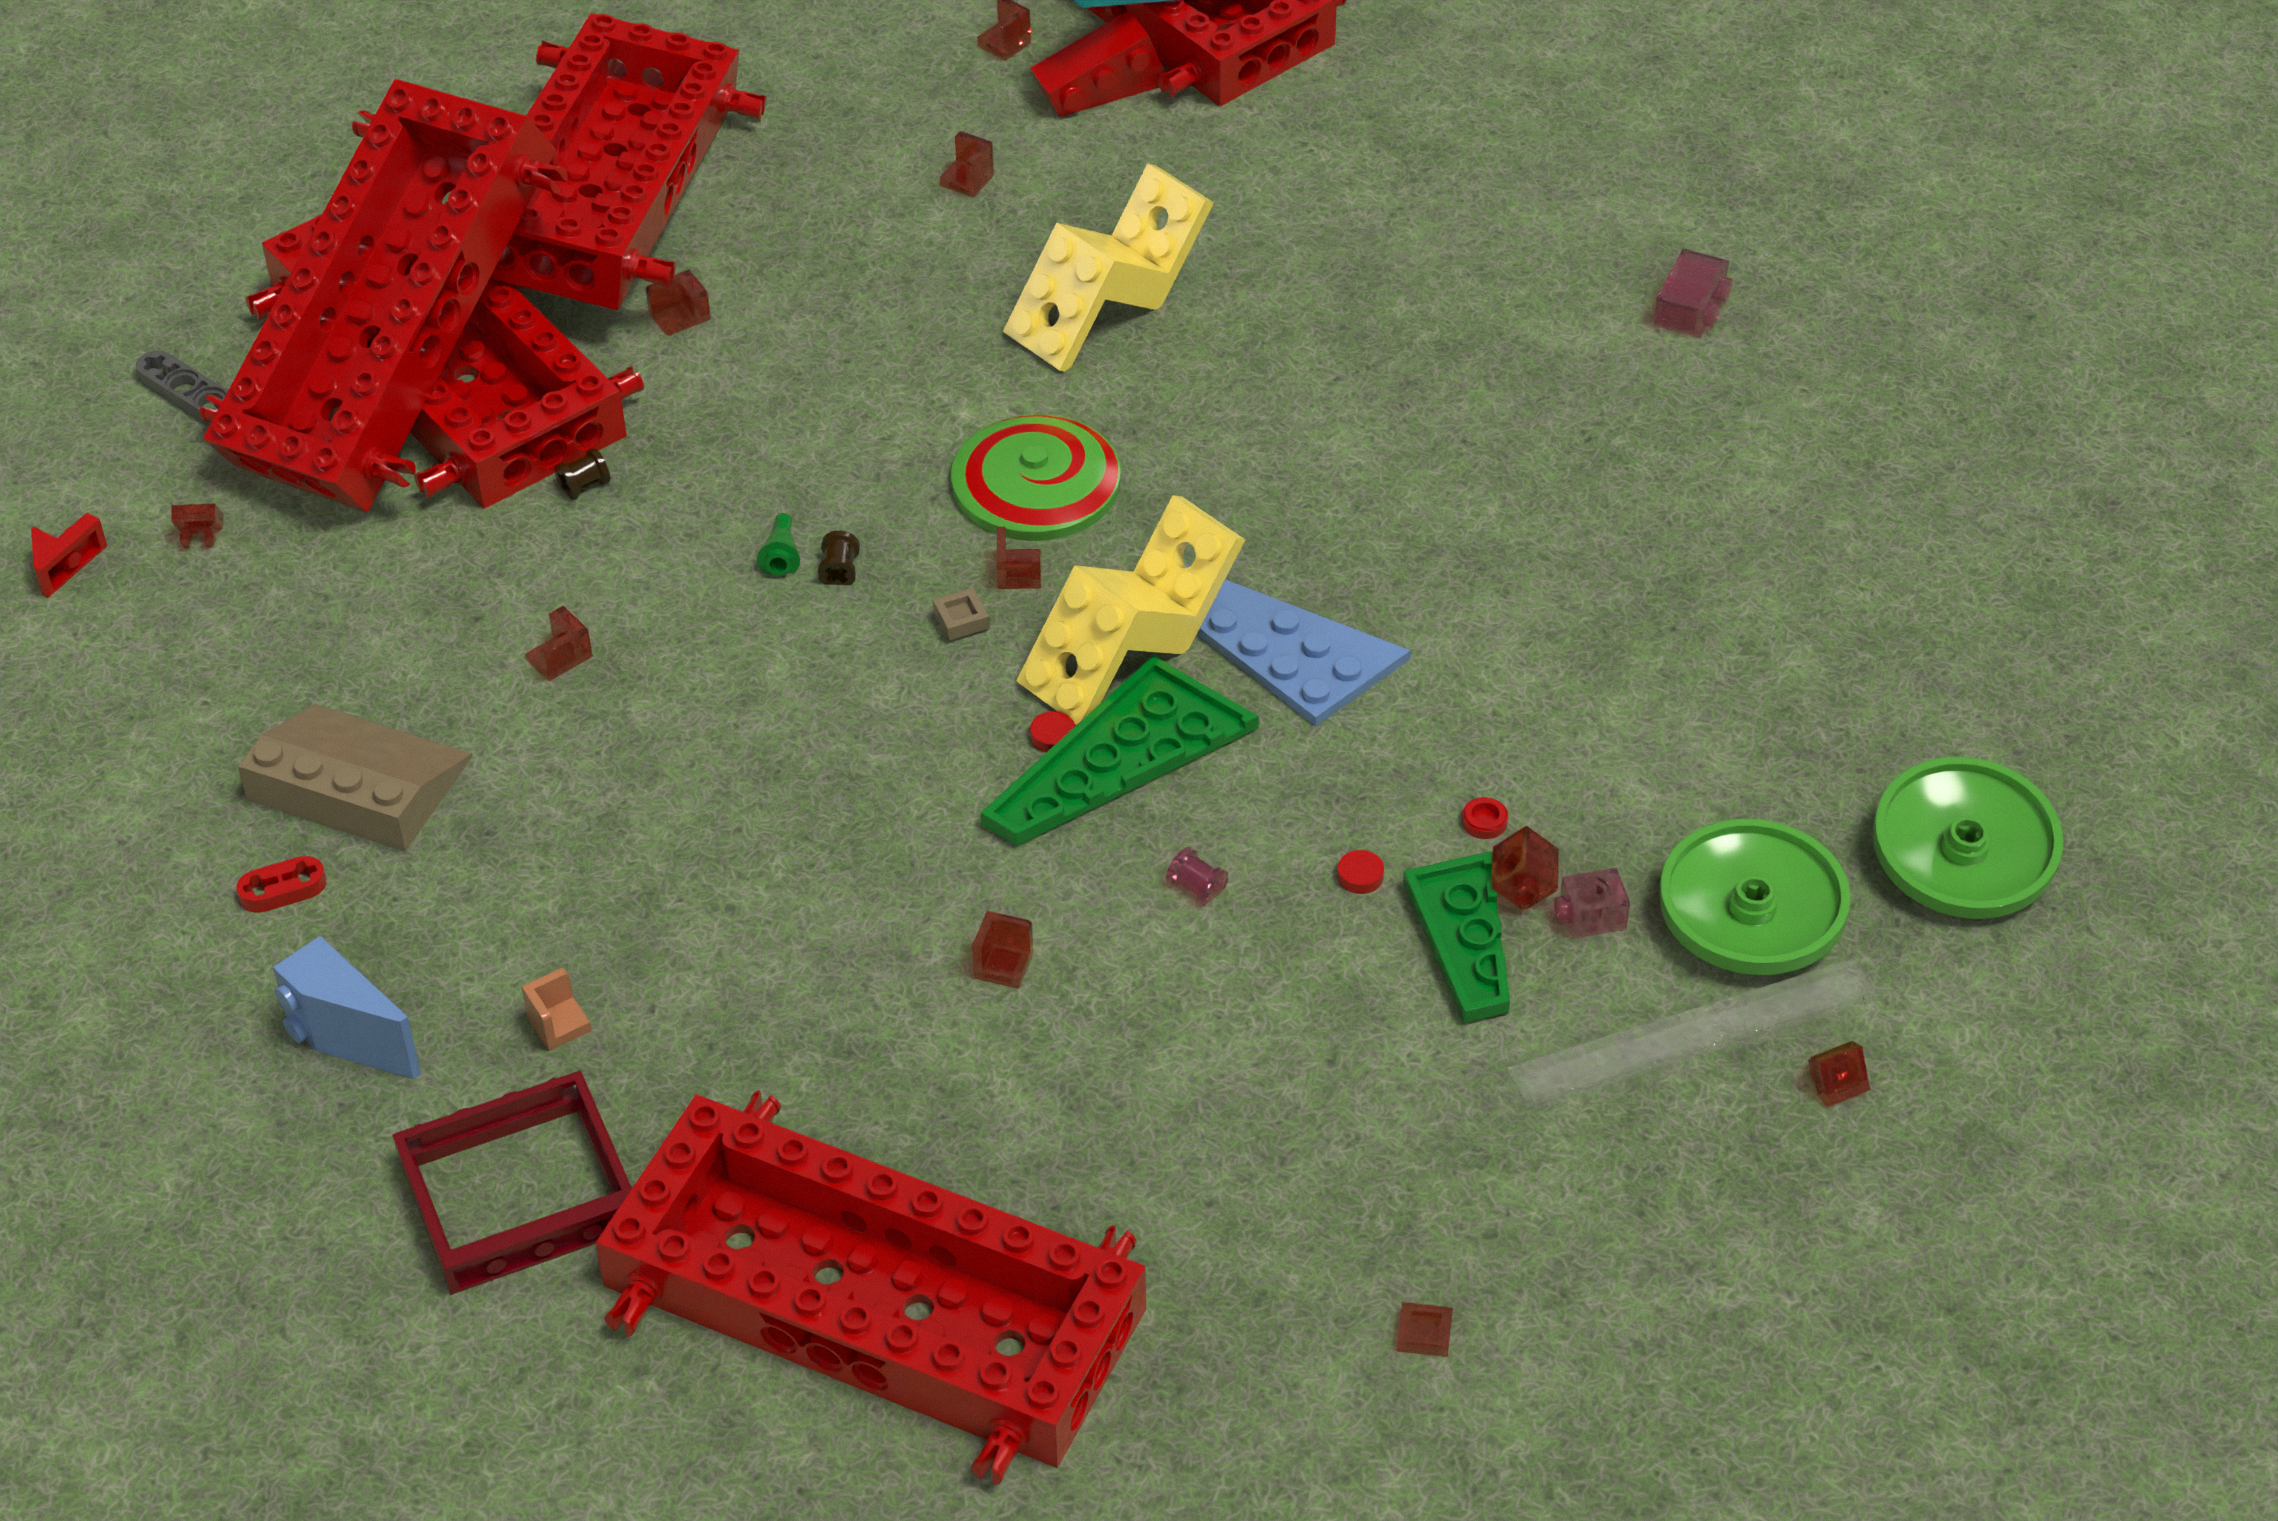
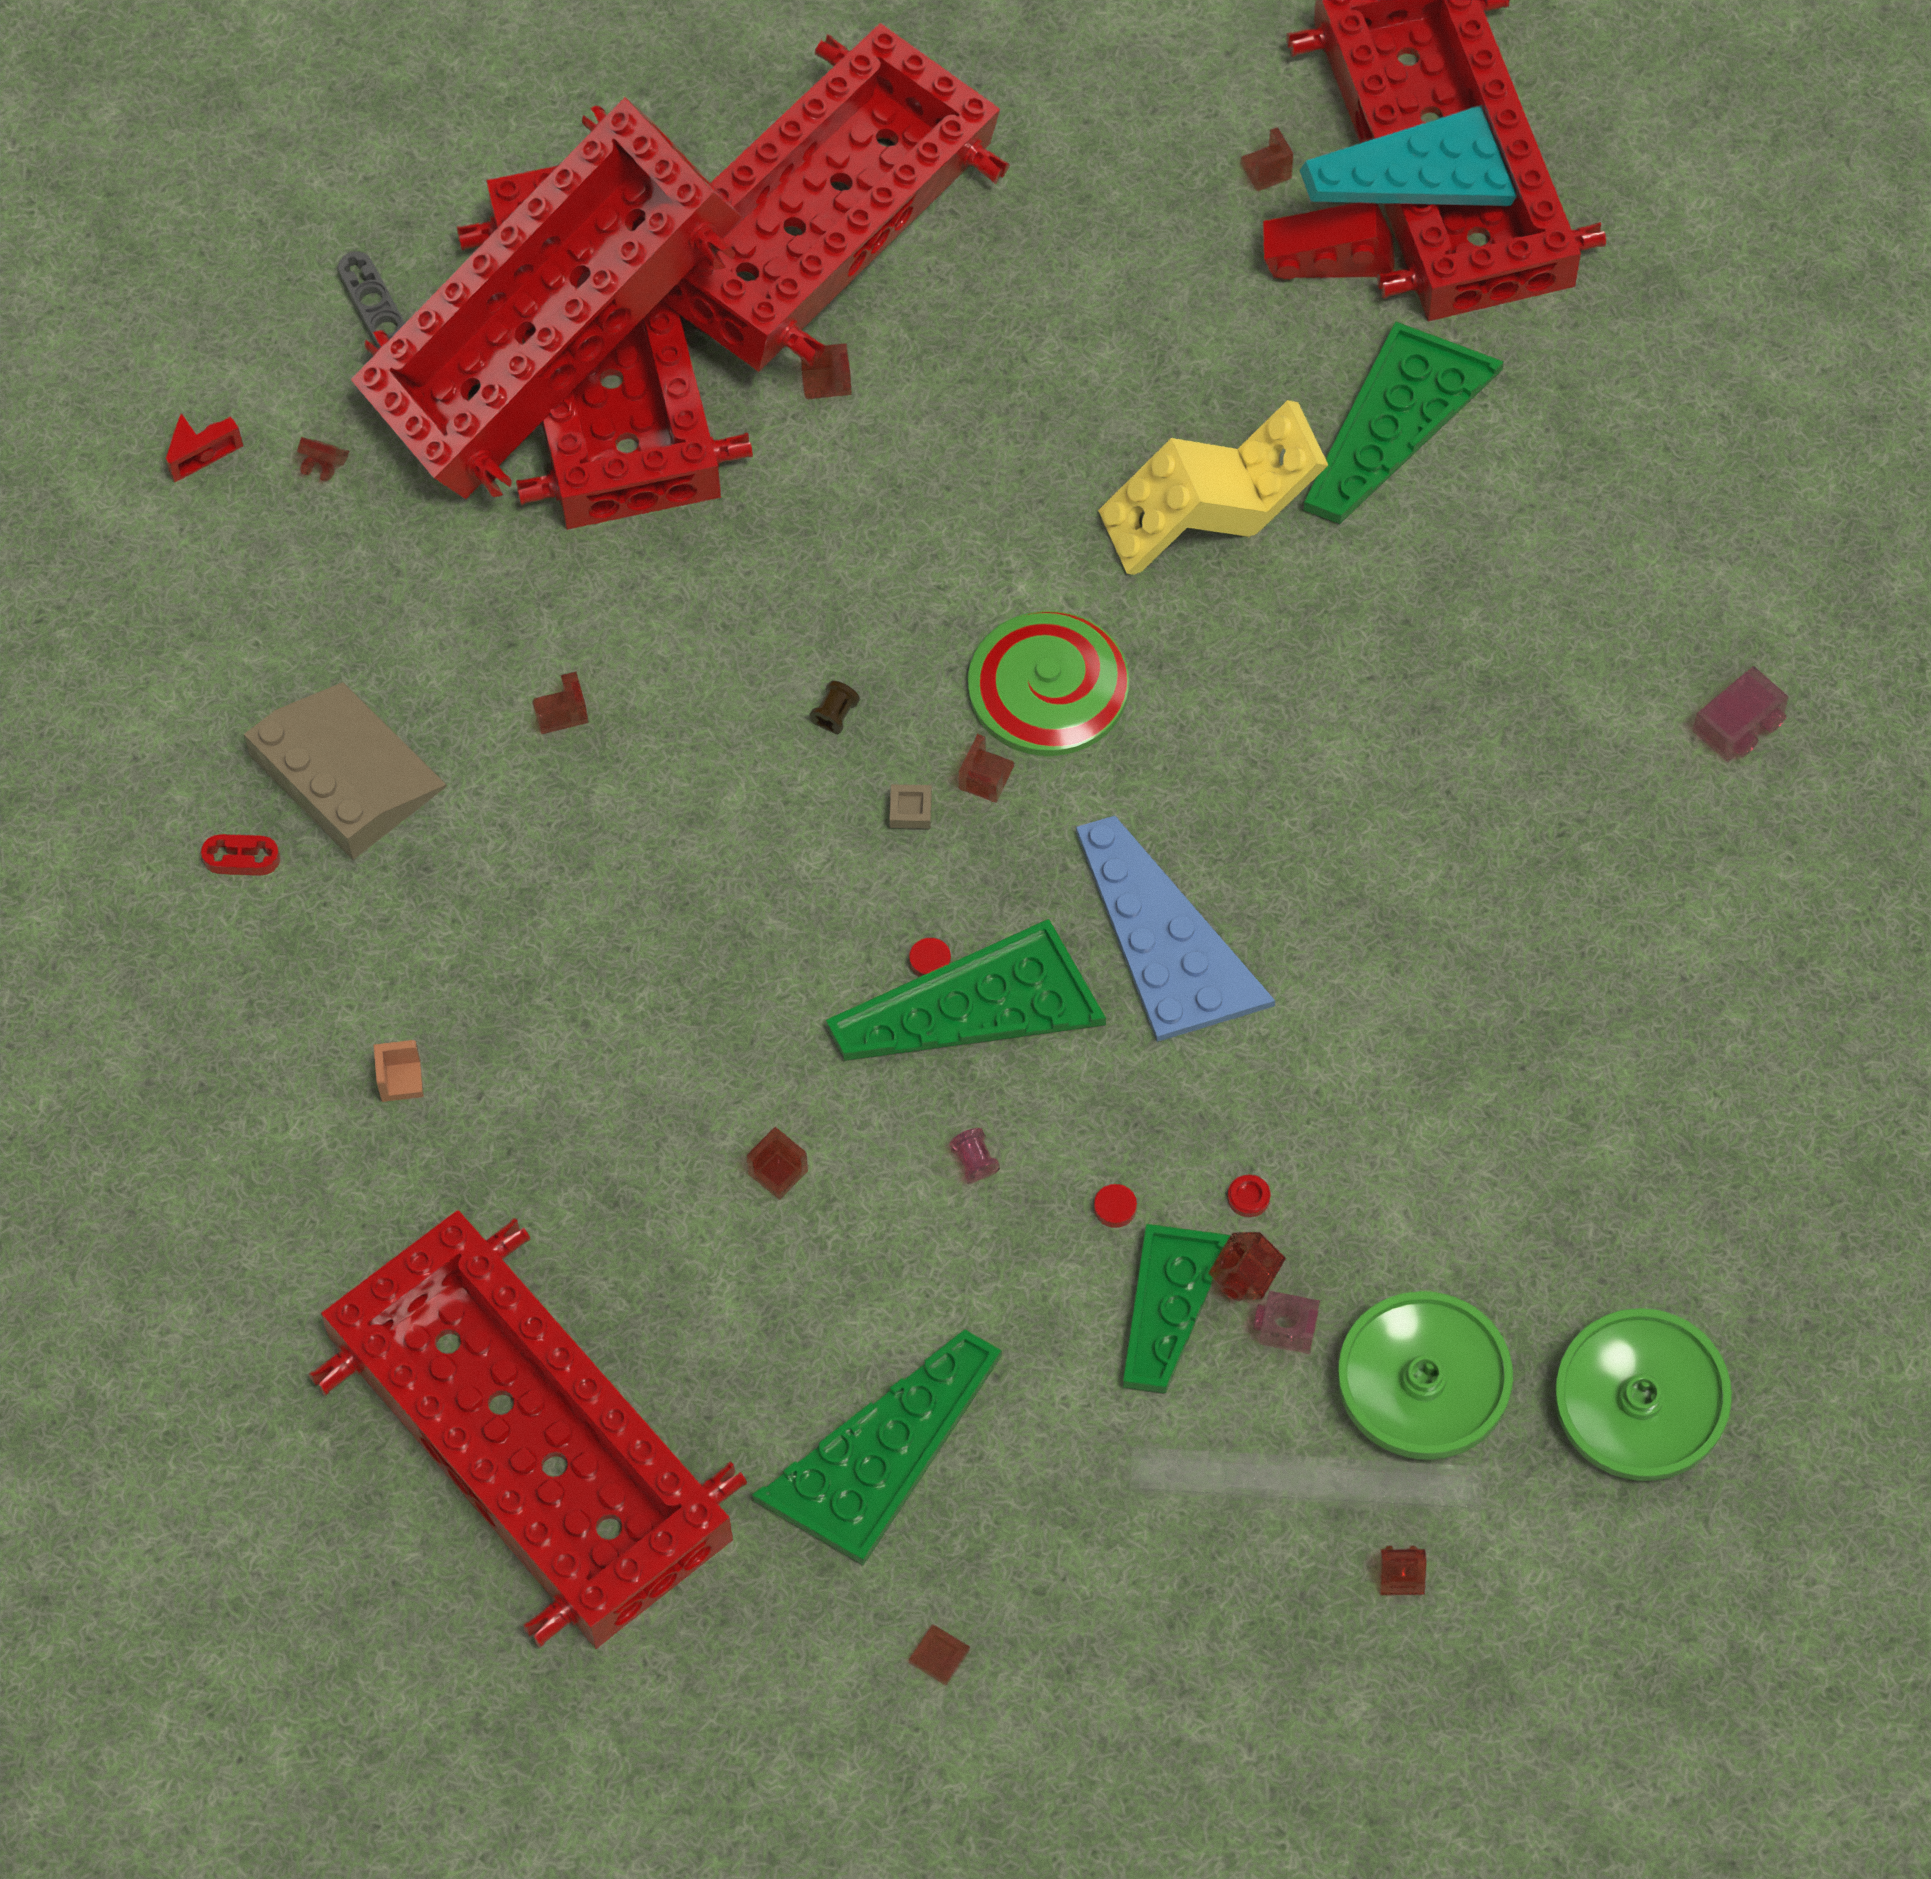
camera: 25 degrees right, 15 degrees up
(343, 1011) = (219, 995): medium blue slope -> none
(538, 1239) = (290, 1153): dark red window -> none
(582, 473) = (661, 528): dark brown bush -> none
(779, 551) = (788, 679): green cone -> none
(972, 165) = (1157, 313): clear red panel -> none
(1118, 610) = (1043, 872): light yellow bracket -> none
(1239, 167) = (1402, 404): none -> green wing
(1254, 1178) = (873, 1461): none -> green wing

